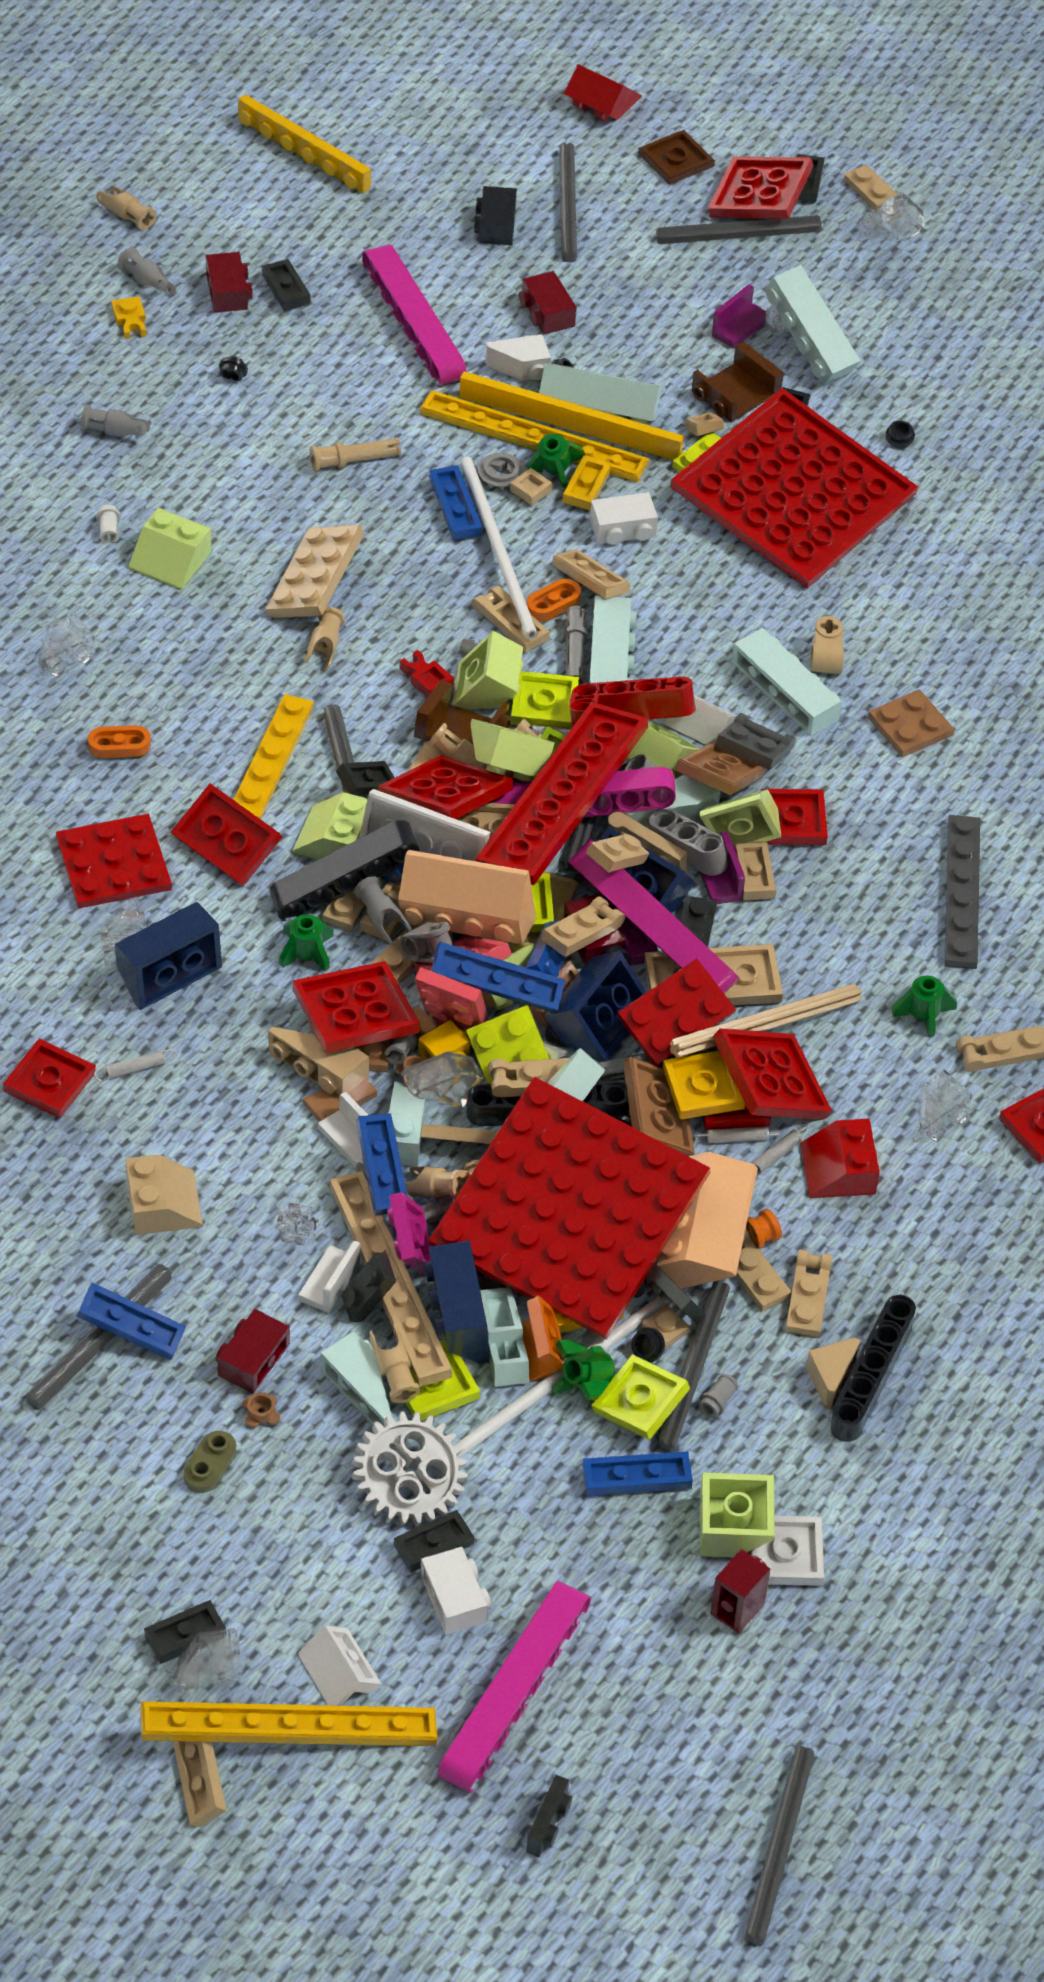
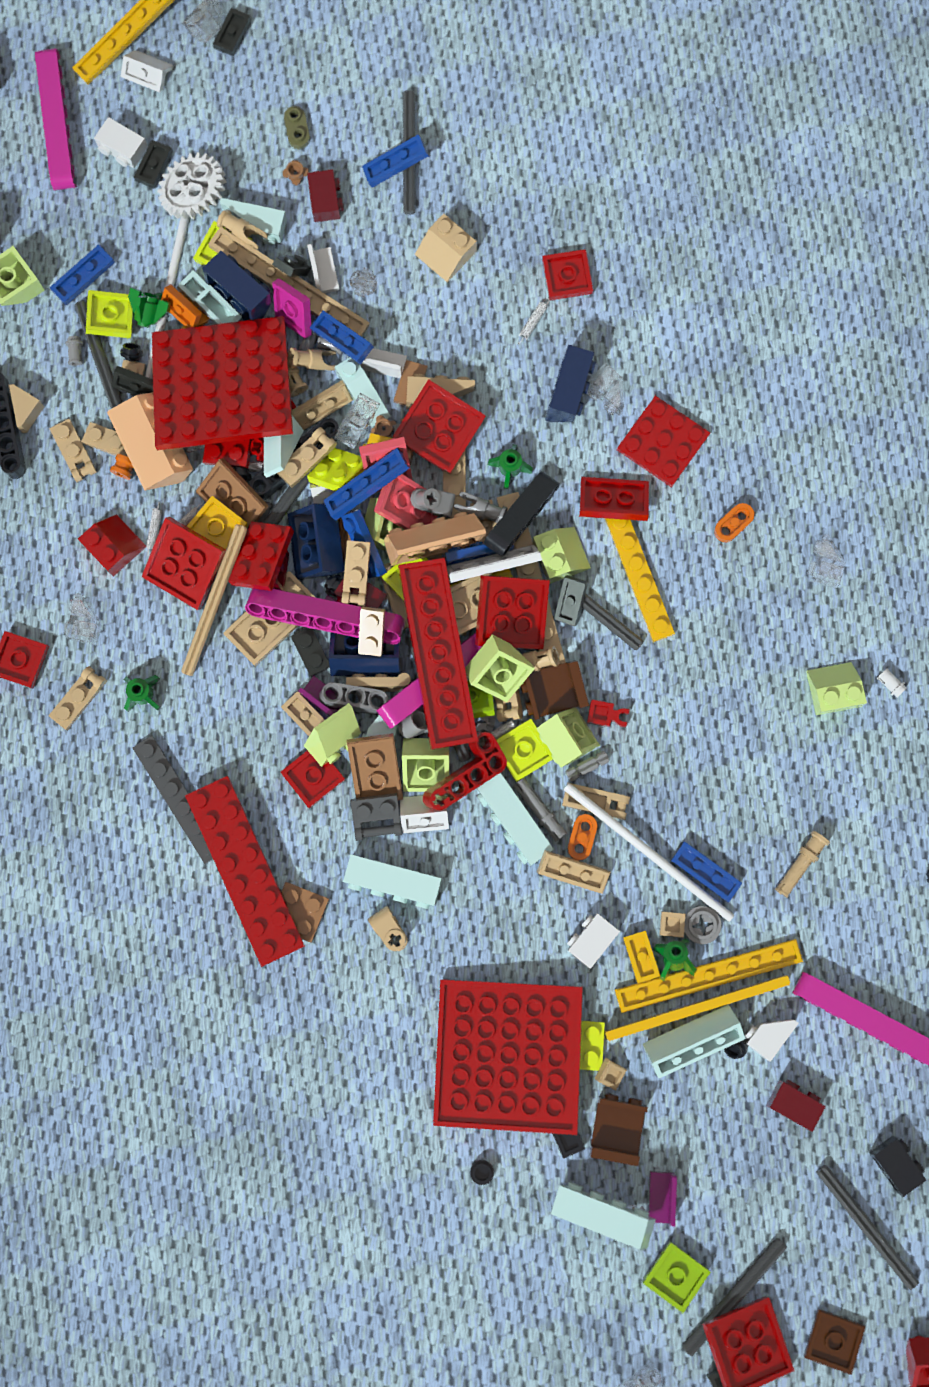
camera: 150 degrees right, 30 degrees up
(315, 571) = (737, 740): tan plate -> none
(325, 635) = (689, 696): tan piece -> none
(776, 259) = (676, 1276): none -> lime plate
(939, 778) = (245, 871): none -> red plate

